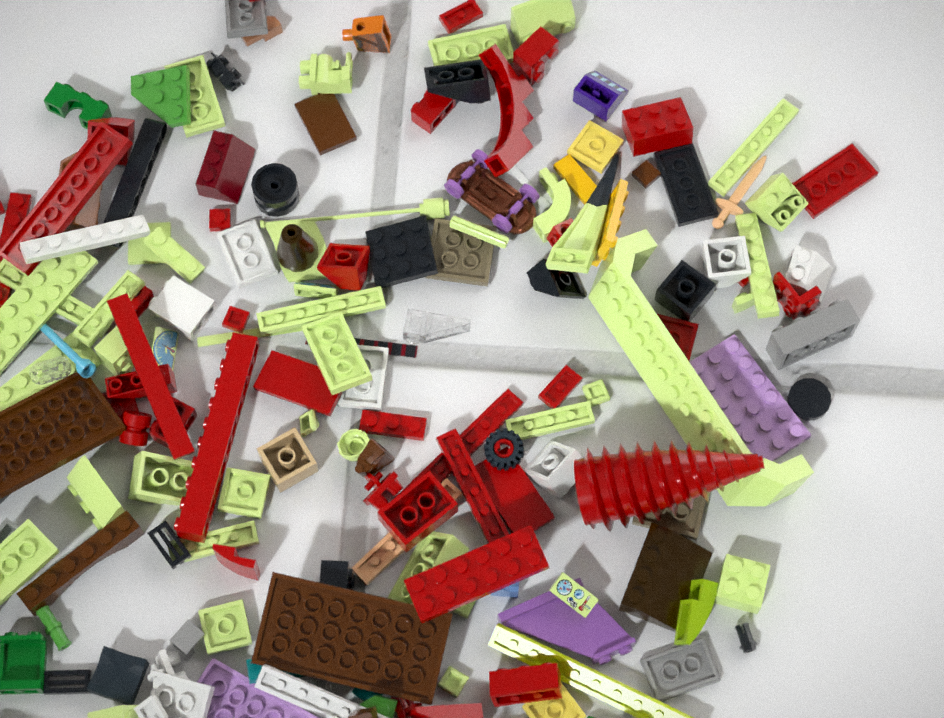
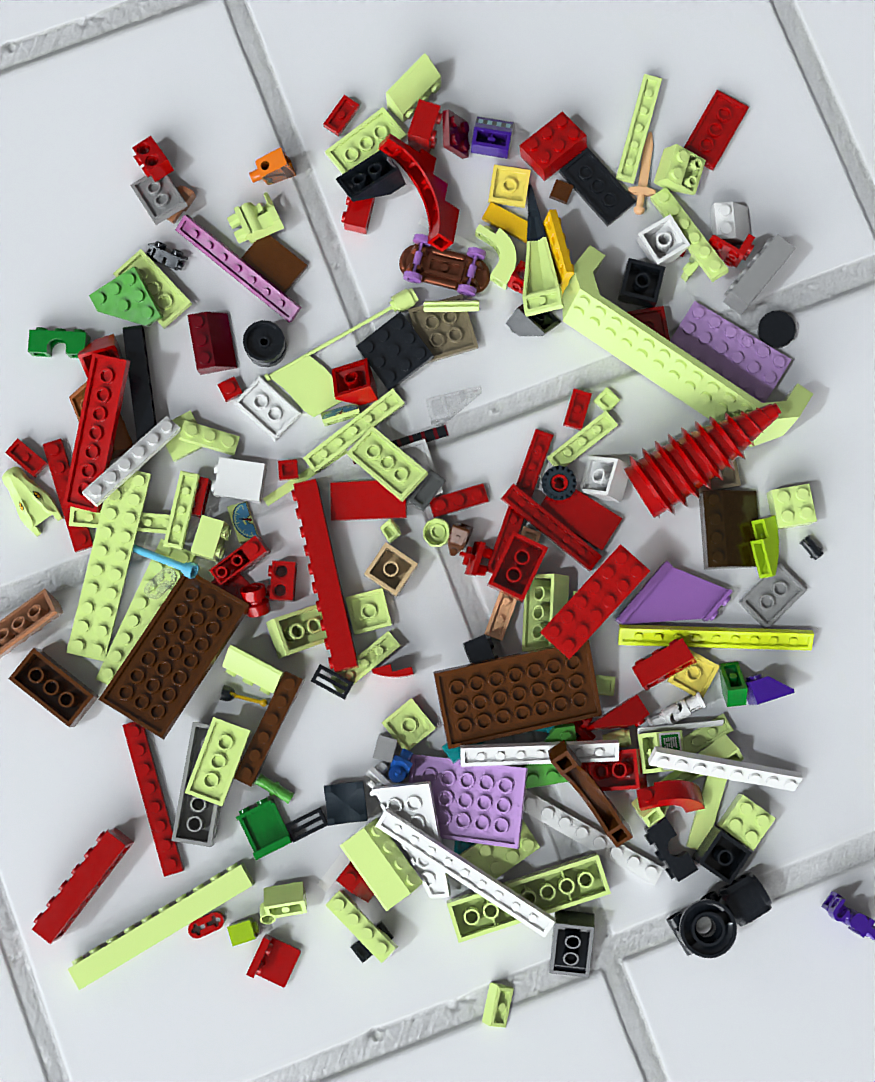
camera: 25 degrees left, 15 degrees up
(59, 510) = (229, 694): none -> hinge
(150, 376) = (248, 554): red tile -> none
(194, 662) = (400, 766): none -> blue hips
(287, 112) = (238, 268): none -> plate
(296, 249) = (312, 393): dark brown cone -> none
(364, 398) = (427, 490): none -> dark grey tile
(563, 75) = (455, 134): none -> dark red plate
(573, 594) = (668, 577): yellowish green tile -> none

